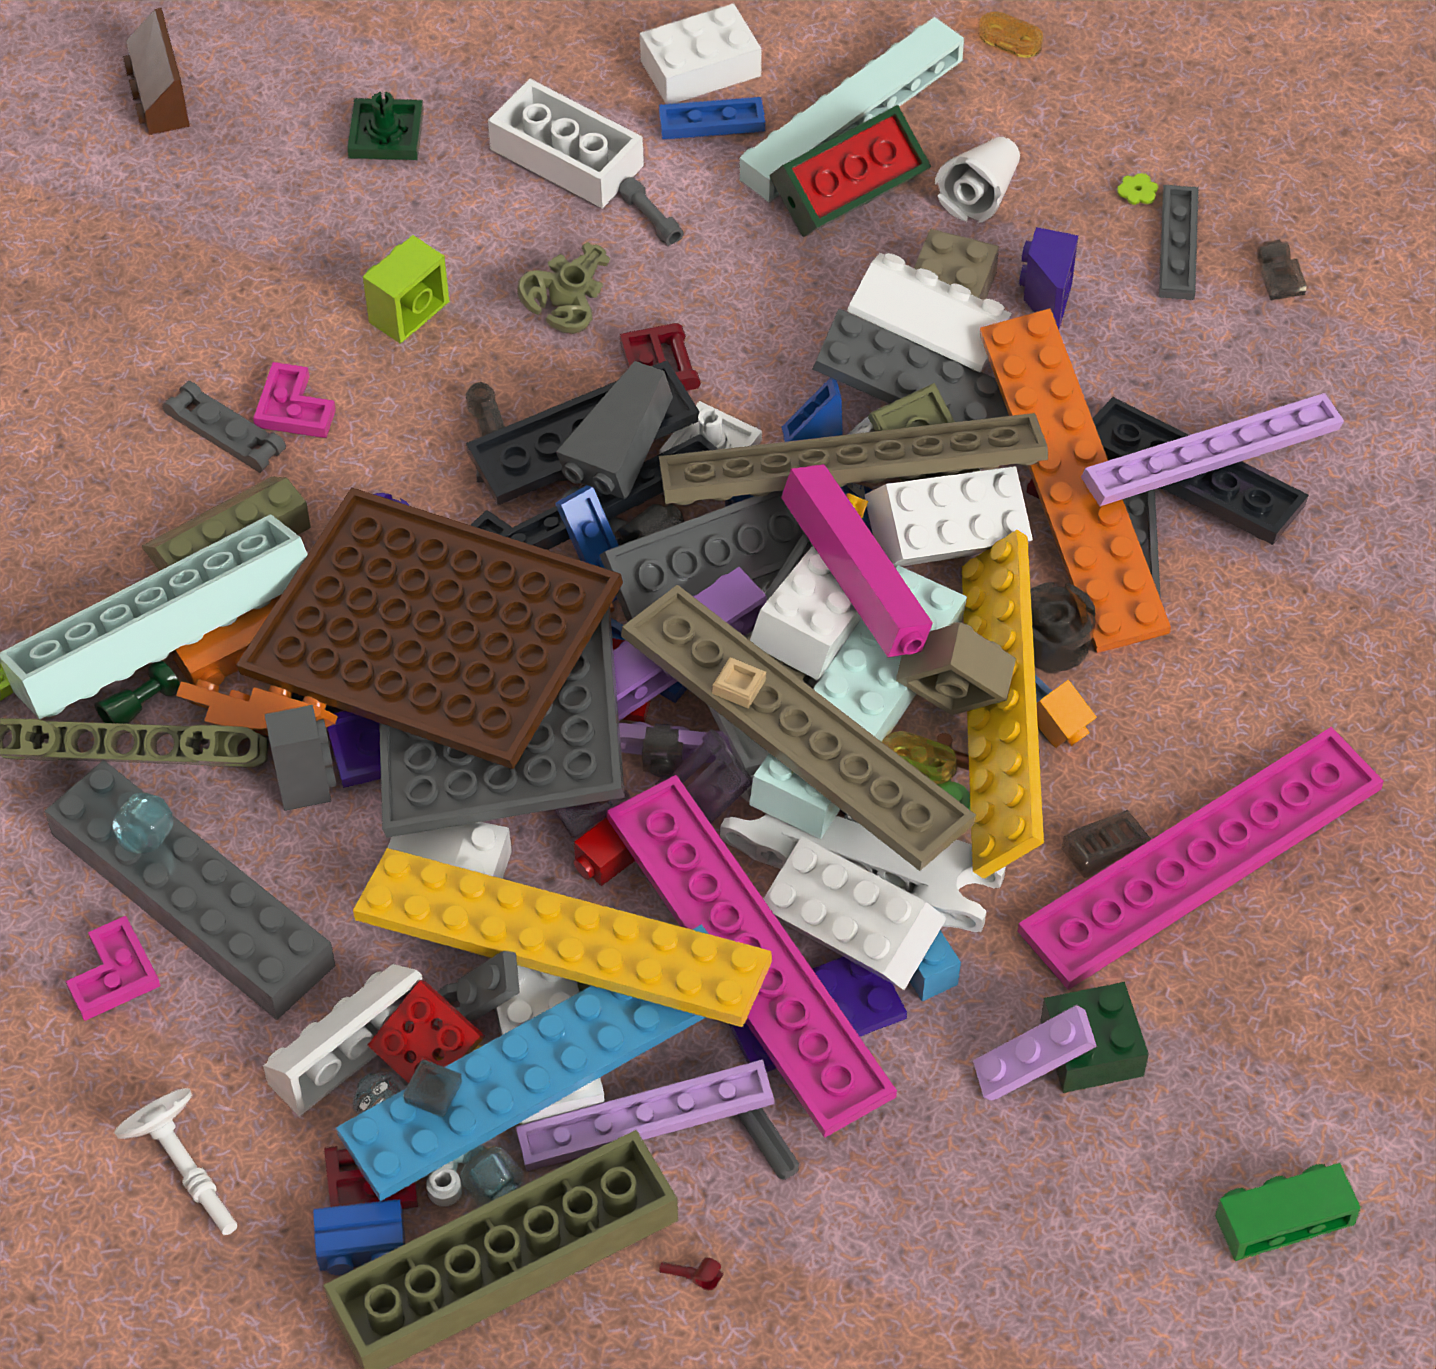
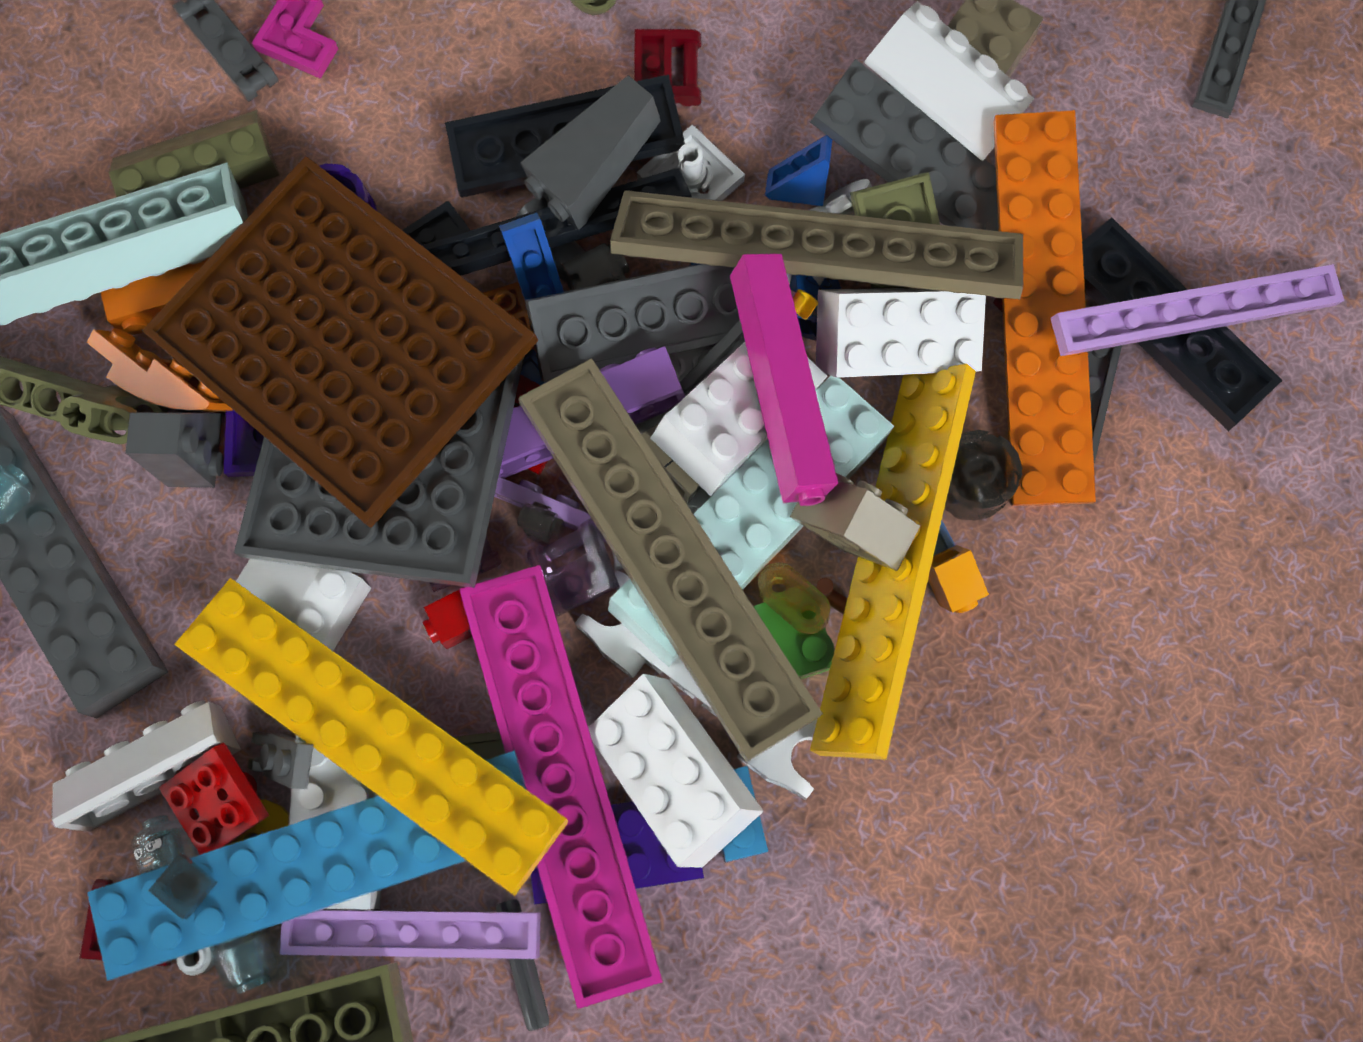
camera: 15 degrees right, 20 degrees up
(126, 704) = (43, 336): dark green piece -> none
(356, 1234) = (83, 992): blue brick -> none
(482, 404) = (478, 76): clear smoke plate -> none
(739, 682) = (618, 496): tan tile -> none
(1034, 1053) = (815, 975): lavender plate -> none
(1048, 271) = (1085, 59): dark purple slope -> none
(1090, 863) = (928, 741): clear smoke slope -> none
(1116, 1031) = (882, 963): dark green brick -> none
(1199, 857) = (1051, 775): dark pink plate -> none
(1280, 272) = (1326, 111): clear smoke plate -> none

